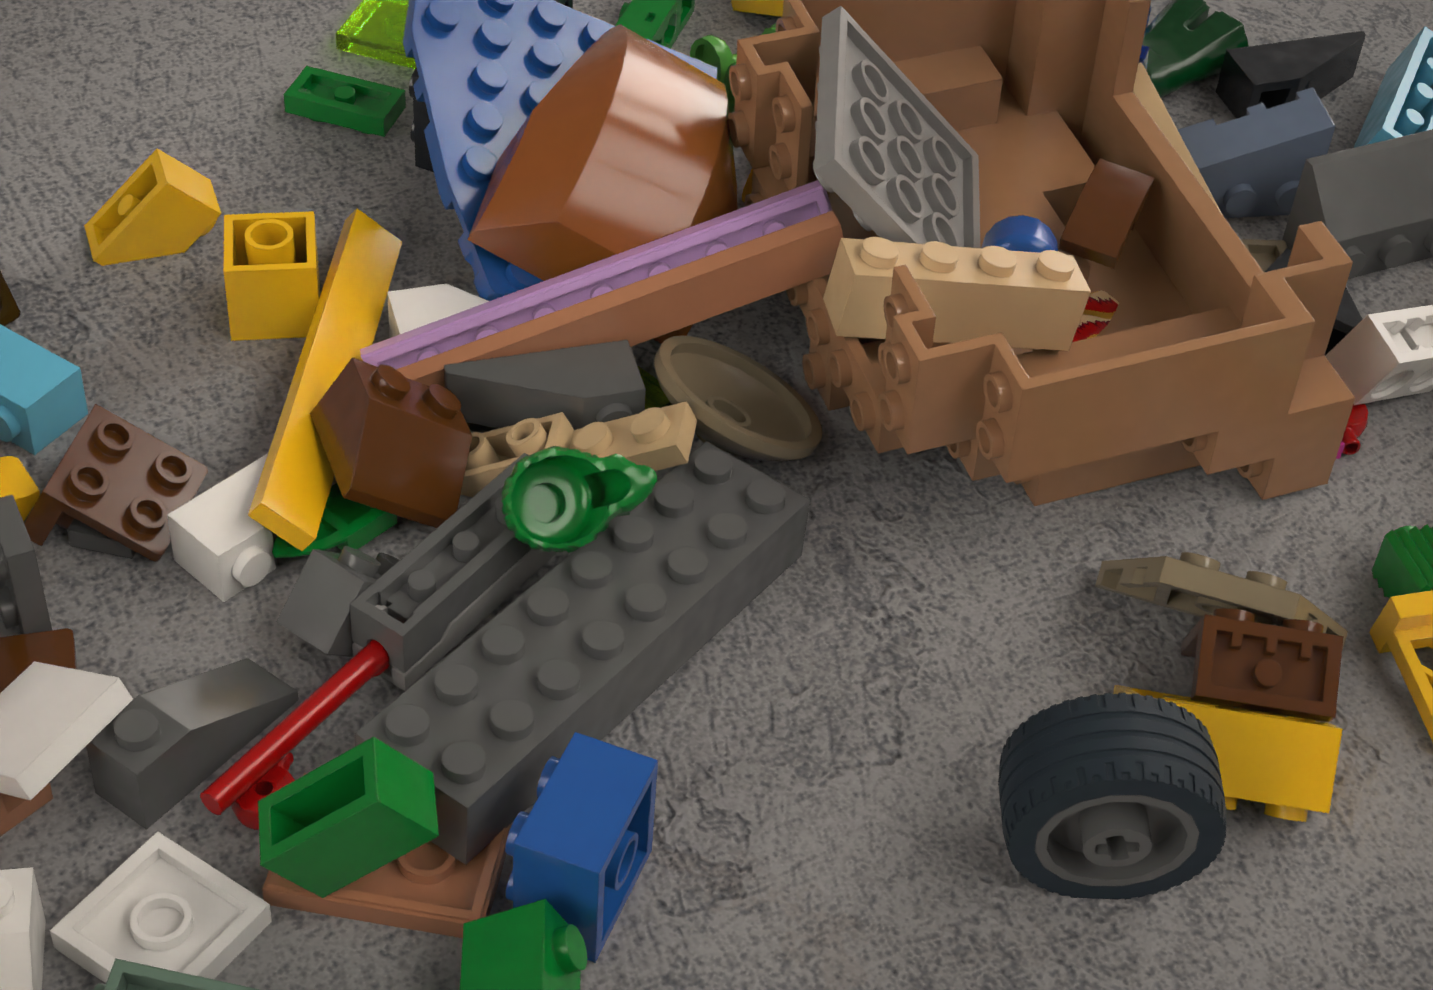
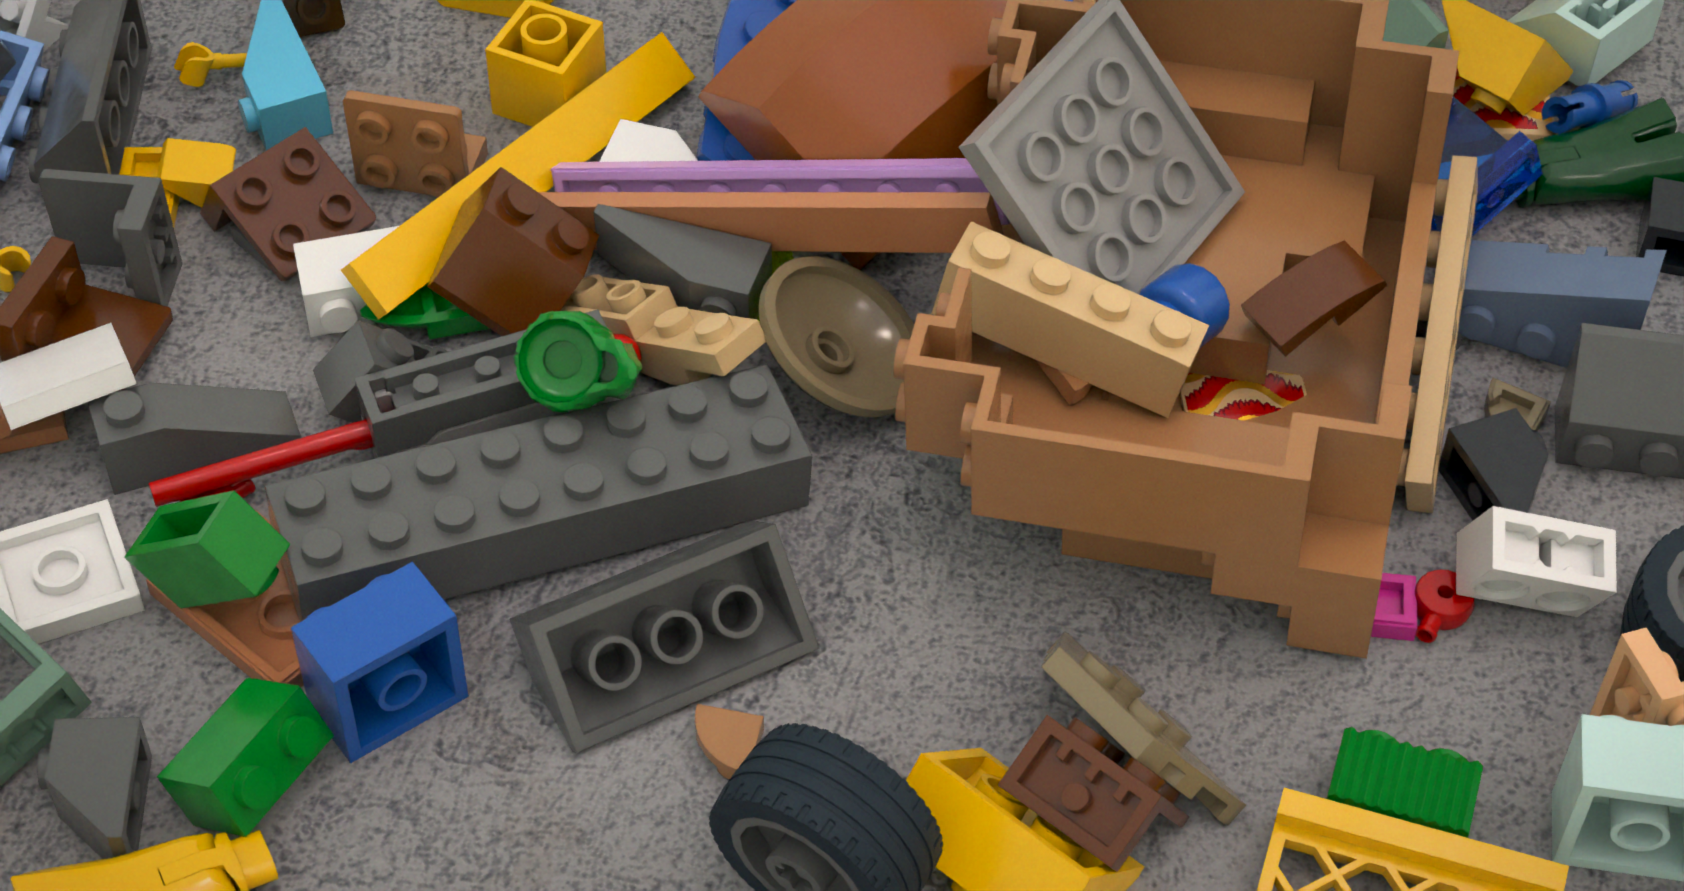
camera: 35 degrees right, 5 degrees up
(204, 385) = (409, 143): none -> medium nougat bracket
(790, 710) = (665, 633): none -> dark grey slope
(916, 774) = (727, 736): none -> medium nougat tile

